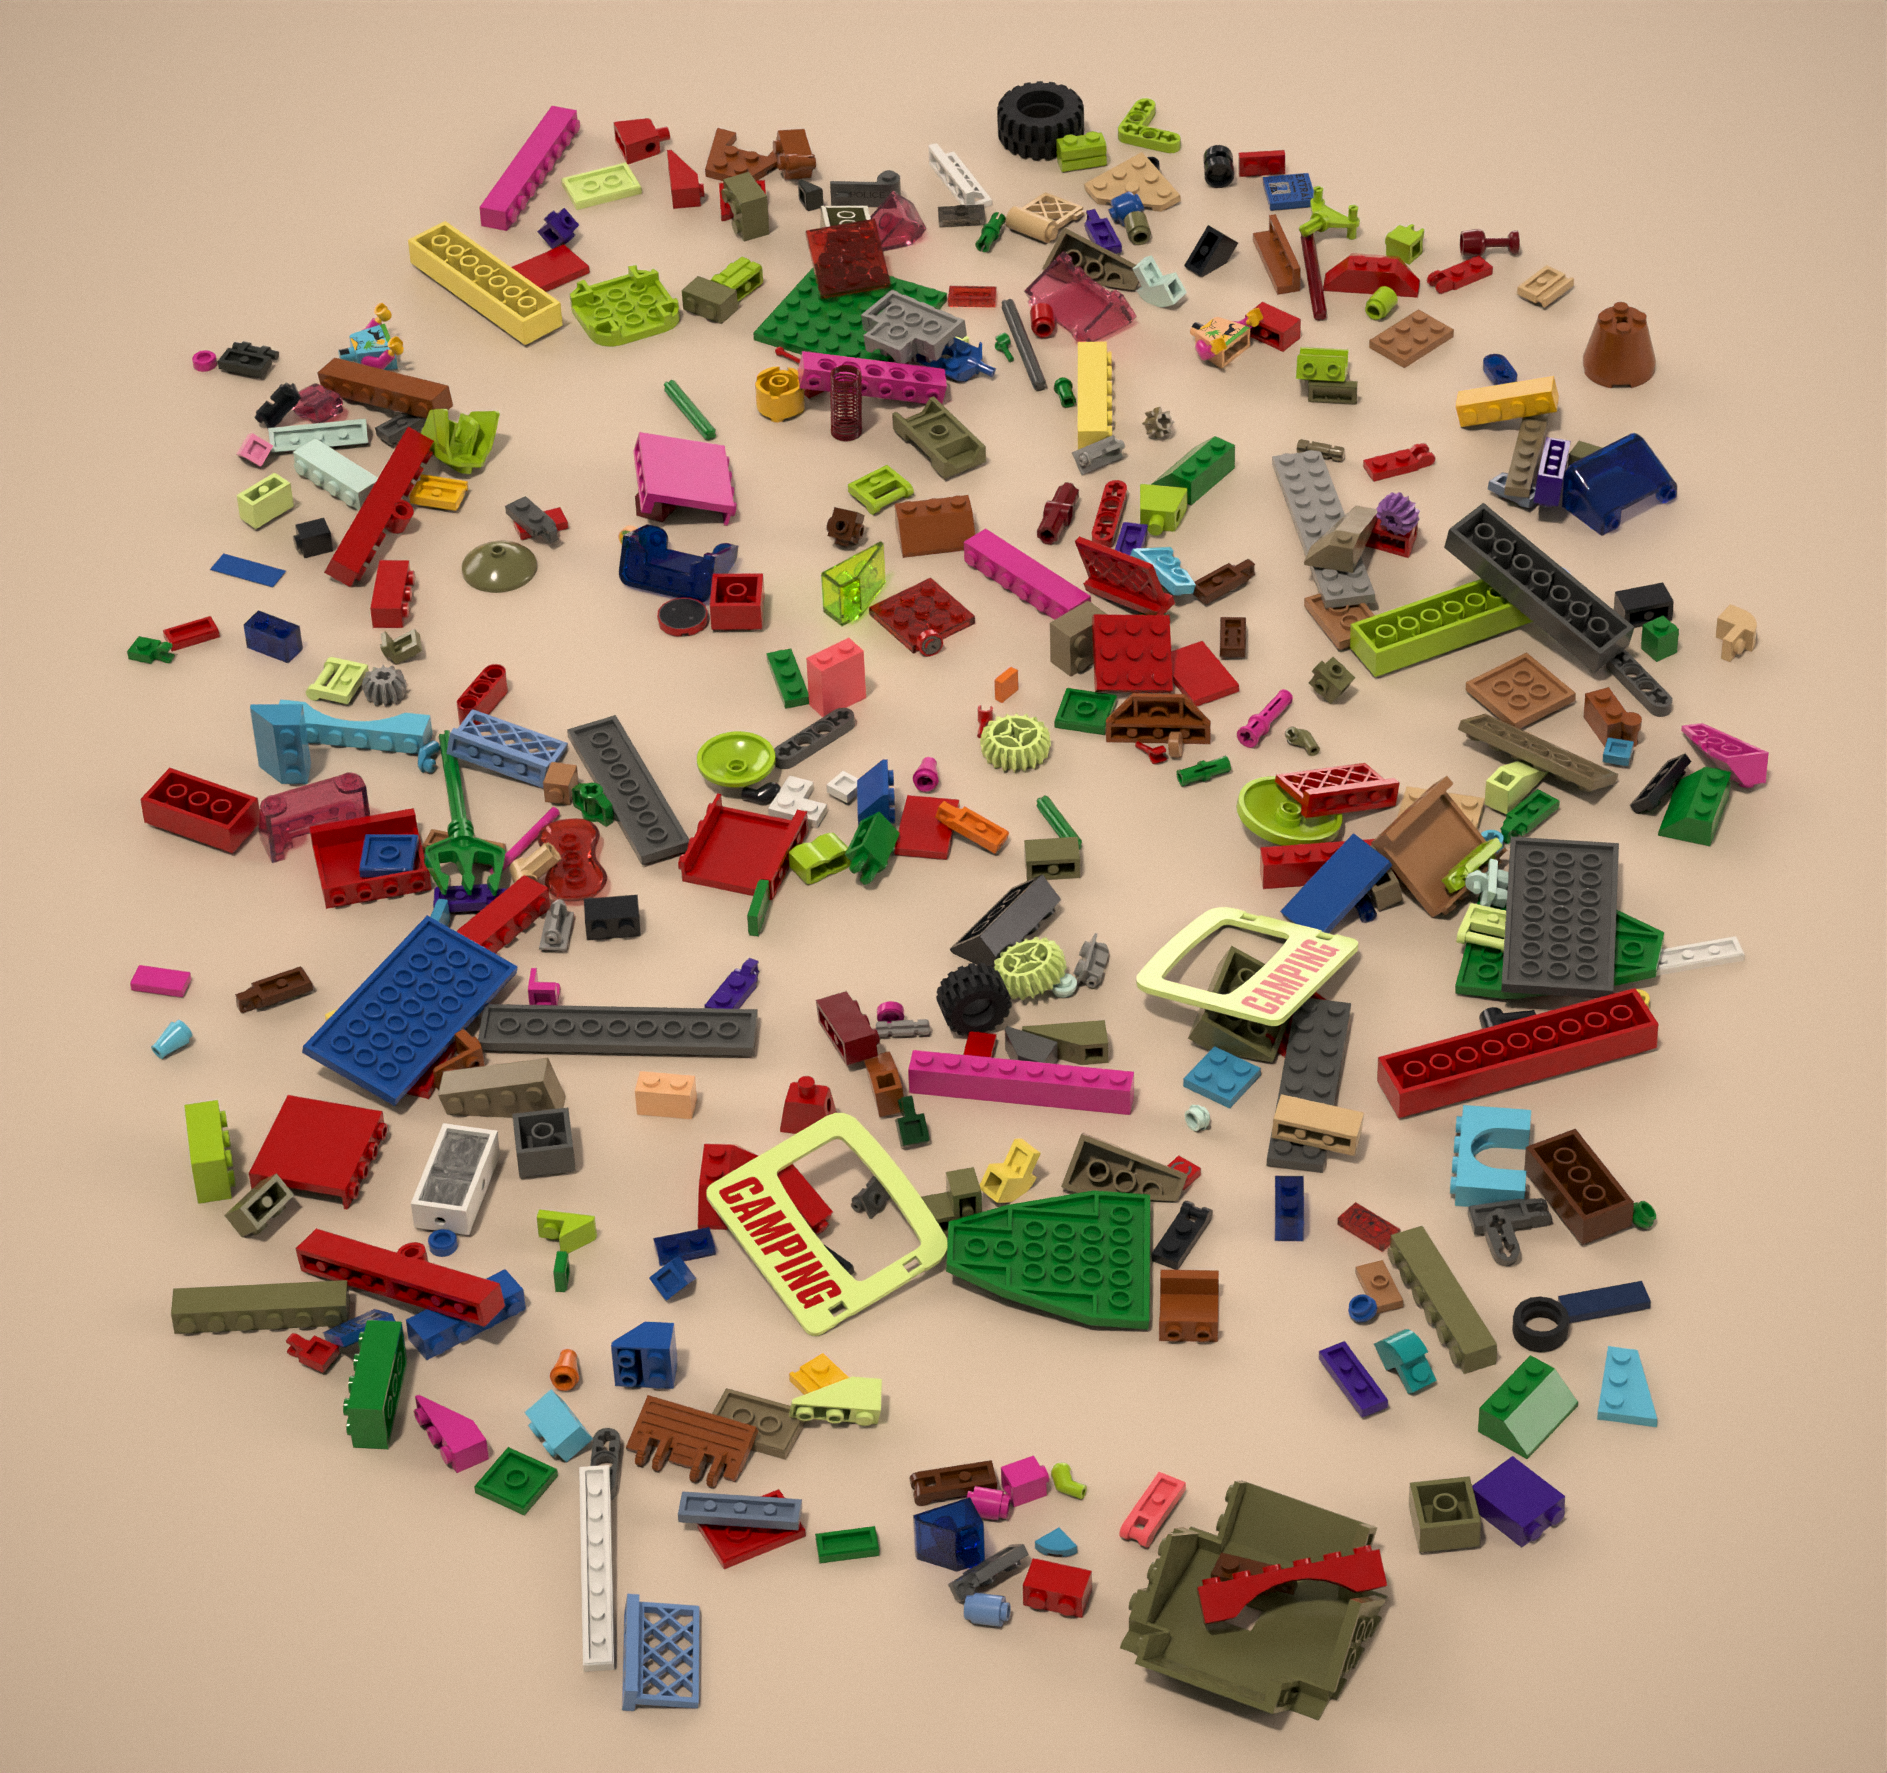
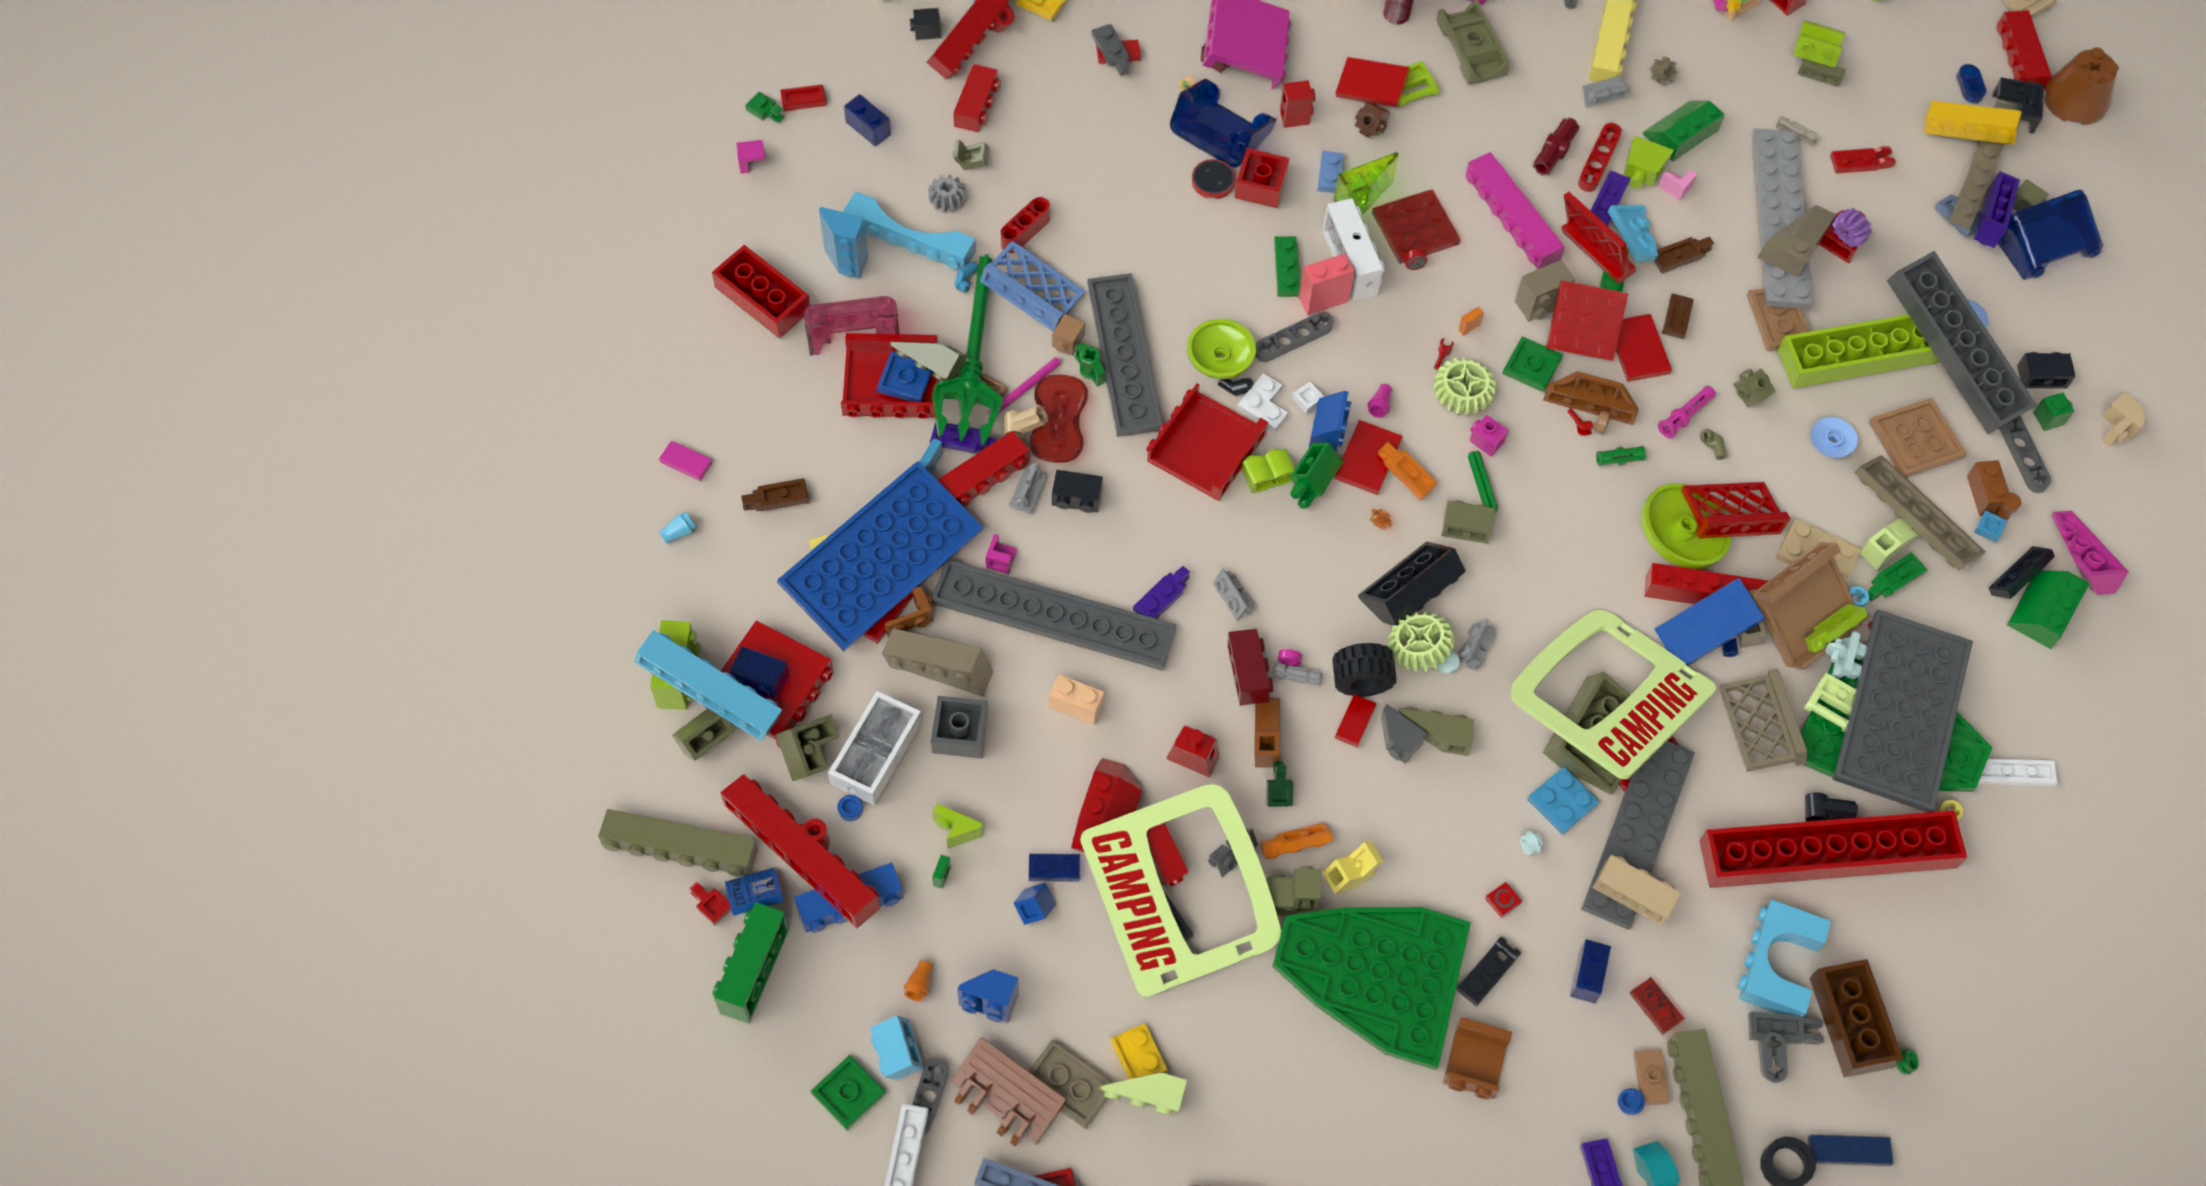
camera: 10 degrees right, 20 degrees up
(145, 690) = (748, 152): none -> dark pink panel
(248, 570) = (866, 41): blue sticker -> none
(255, 1147) = (708, 685): none -> medium azure brick
(307, 1132) = (759, 672): none -> clear blue brick
(344, 683) = (914, 182): yellowish green plate -> none
(377, 1189) = (802, 748): none -> olive brick
(418, 821) = (938, 357): none -> slope
(455, 1434) = (808, 1033): dark pink slope -> none
(499, 566) = (1073, 88): olive dish -> none
(757, 526) = (1297, 103): none -> red brick
(758, 908) = (1203, 512): green tile -> none
(811, 585) = (1330, 167): none -> medium blue plate
(811, 973) = (1228, 588): none -> light grey hinge
(841, 489) = (1372, 81): none -> red tile
(842, 619) = (1349, 235): none -> white brick
(934, 525) = (1448, 135): dark orange slope -> none
(938, 1168) = (1295, 840): none -> orange hinge
(955, 875) = (1380, 519): none -> clear orange plate
(1021, 1082) = (1386, 765): dark pink brick -> none
(1053, 779) = (1488, 435): none -> dark pink brick
(1063, 388) = (1591, 21): green pin -> none
(1111, 1168) = (1444, 885): dark tan wedge -> none
(1201, 523) = (1677, 185): none -> bright pink panel
(1411, 338) = (1901, 28): medium nougat plate -> none
(1430, 707) = (1837, 430): none -> light blue dish
(1435, 952) = (1785, 721): none -> dark tan fence
(1549, 331) = (2023, 47): none -> red brick
(1561, 366) = (2027, 95): none -> black panel

